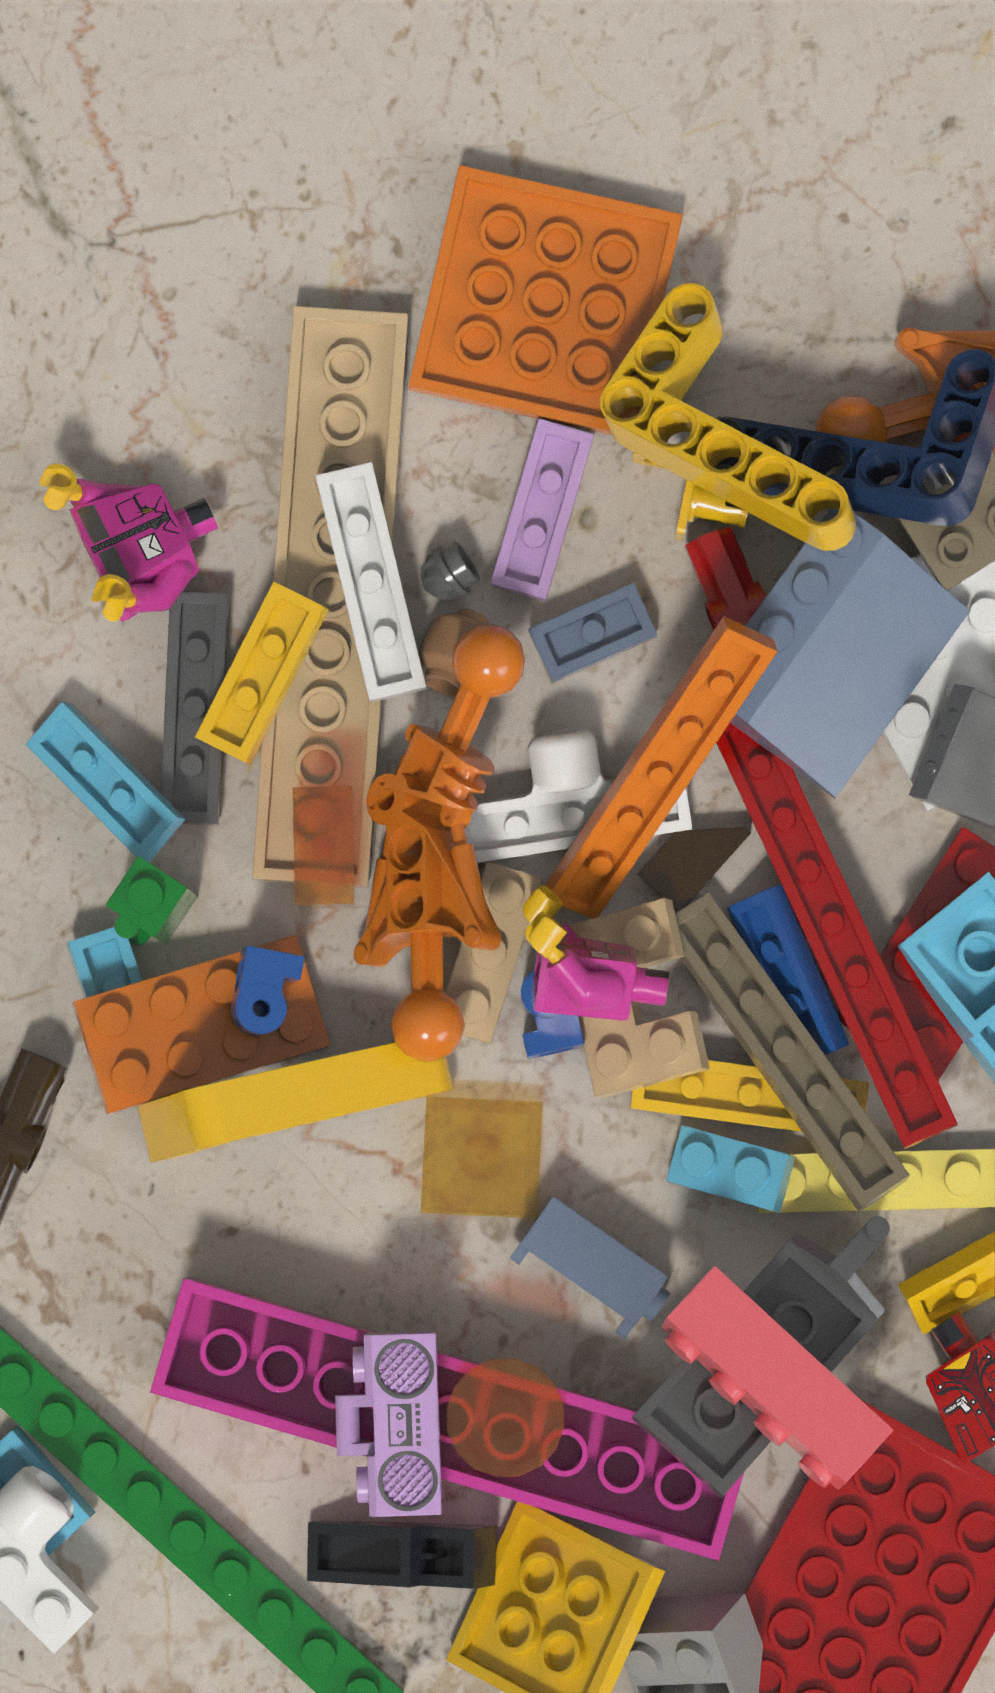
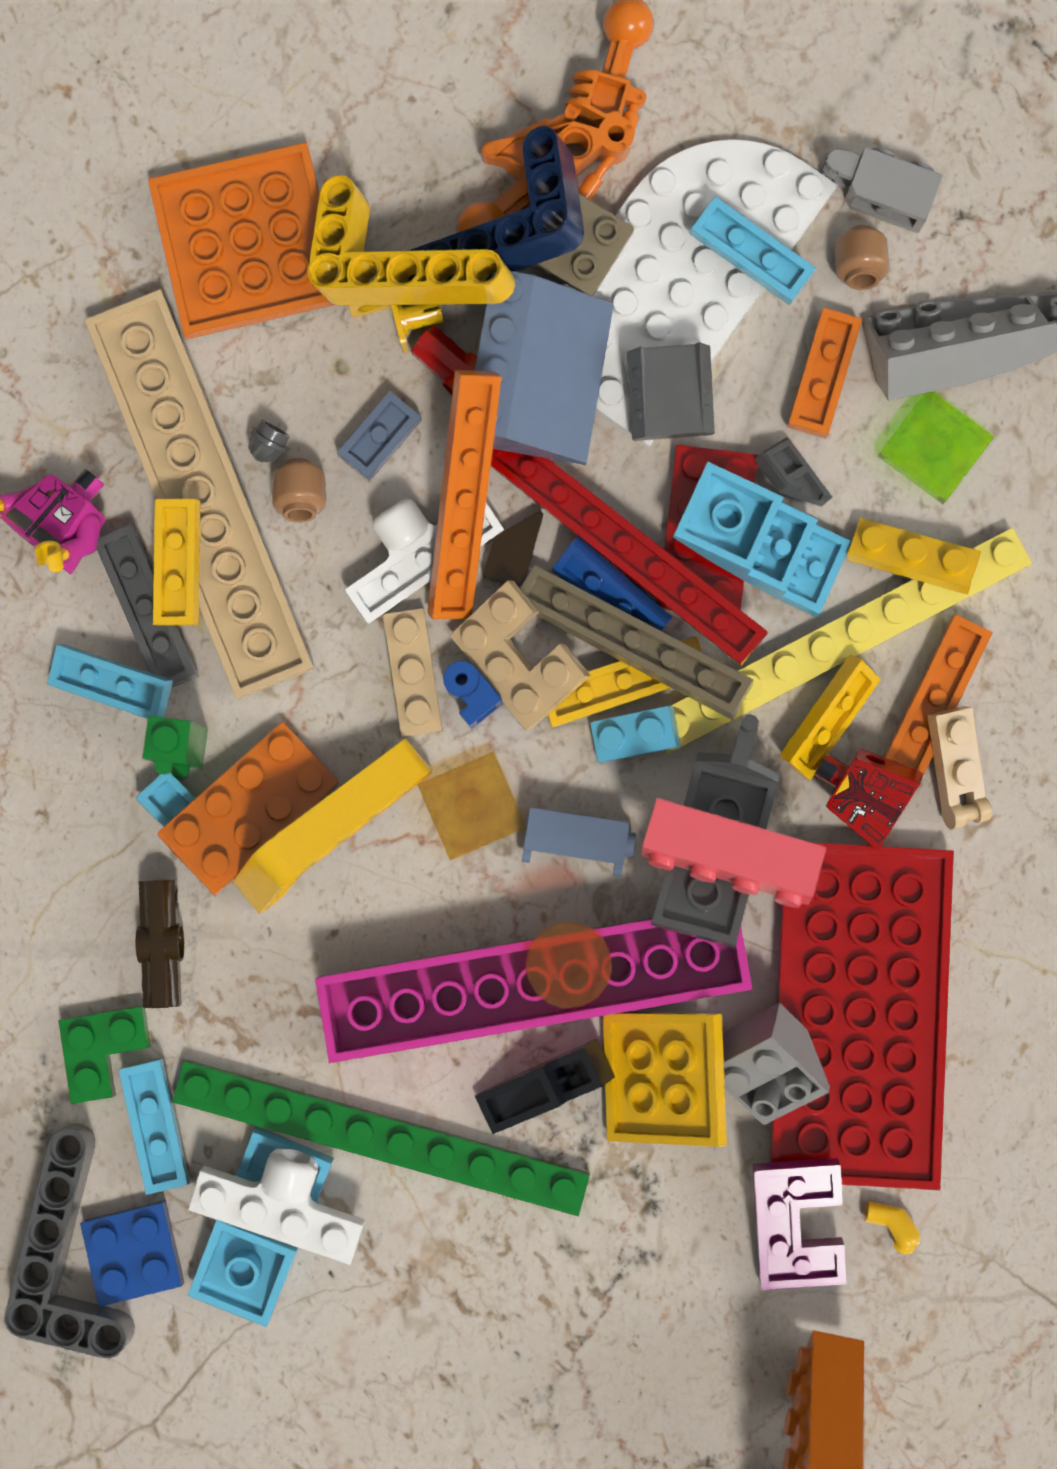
camera: 30 degrees left, 0 degrees up
(258, 986) = (275, 773): blue leg -> none
(324, 847) = (271, 654): clear orange brick -> none
(370, 582) = (219, 470): white plate -> none
(405, 1452) = (514, 1018): lavender piece -> none
(428, 871) = (346, 636): orange piece -> none
(542, 510) = (308, 373): lavender plate -> none
(582, 973) = (480, 651): dark pink torso -> none

